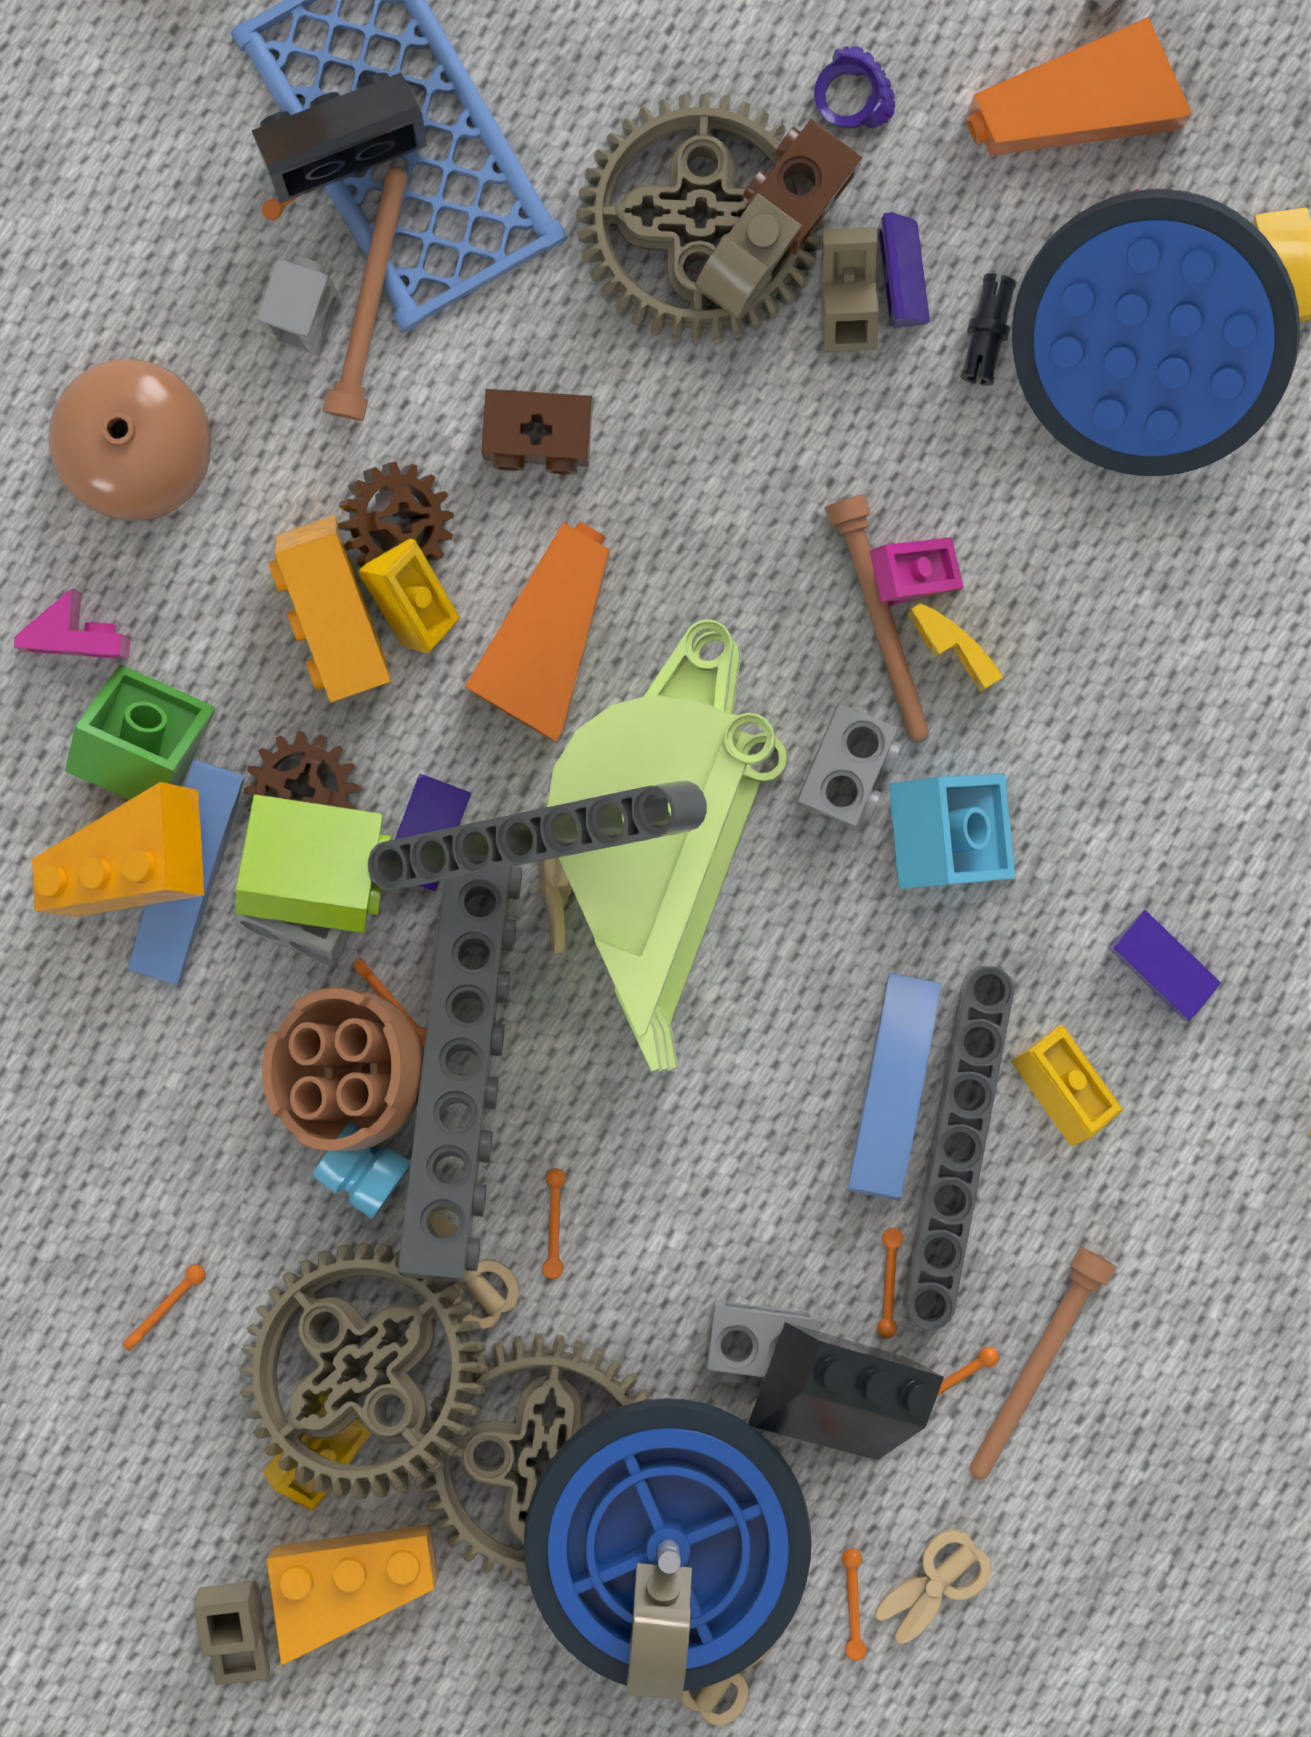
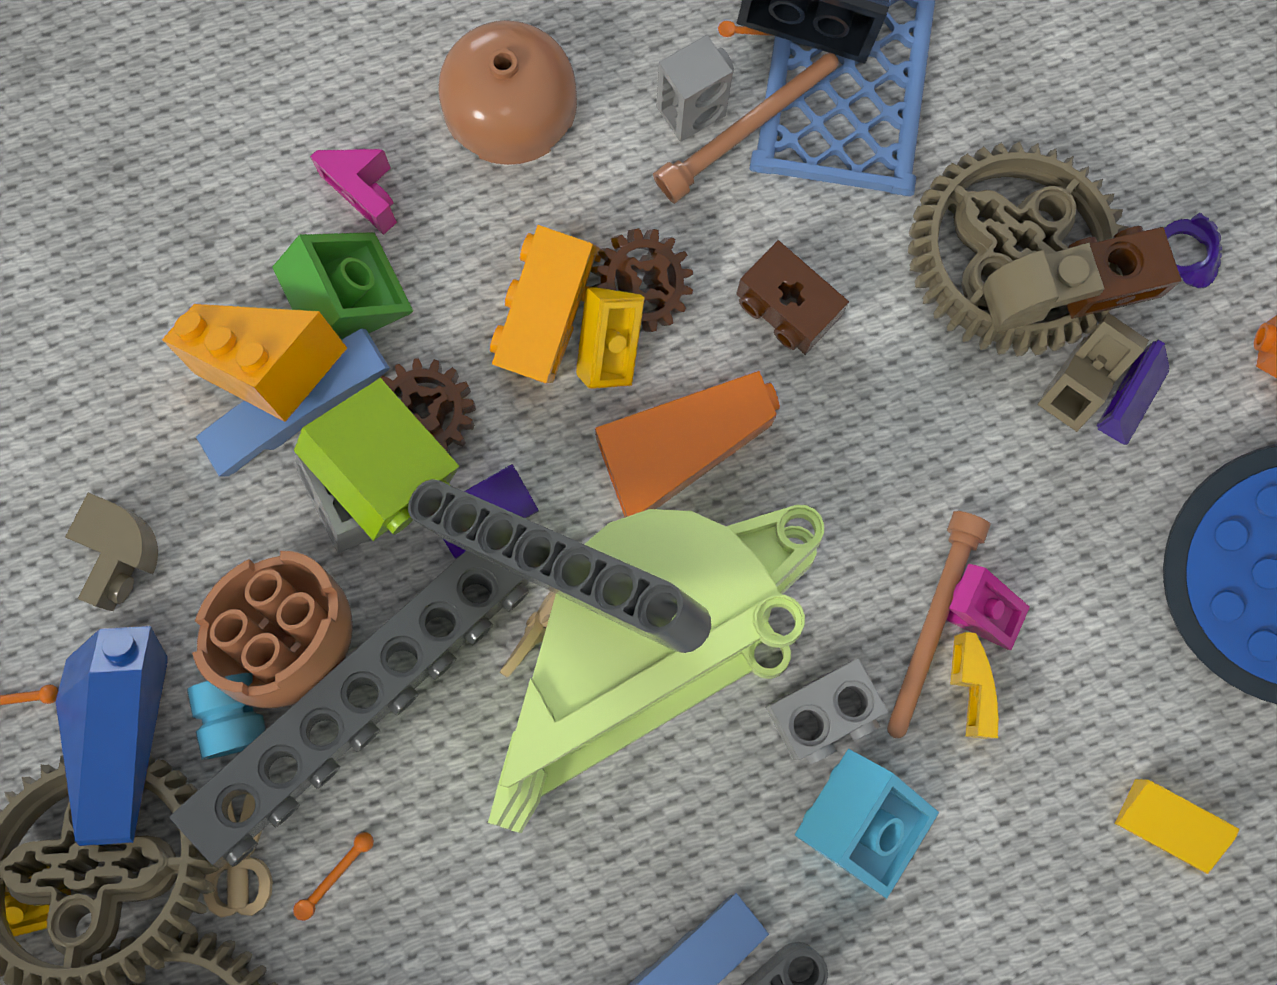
camera: 30 degrees right, 10 degrees down
(146, 1103) = (123, 545): none -> dark tan brick
(269, 1251) = (108, 728): none -> blue wedge
(365, 971) = (357, 577): orange hinge -> none
(988, 329) = (1169, 481): black pin -> none
(1205, 628) = (1175, 825): none -> yellow slope

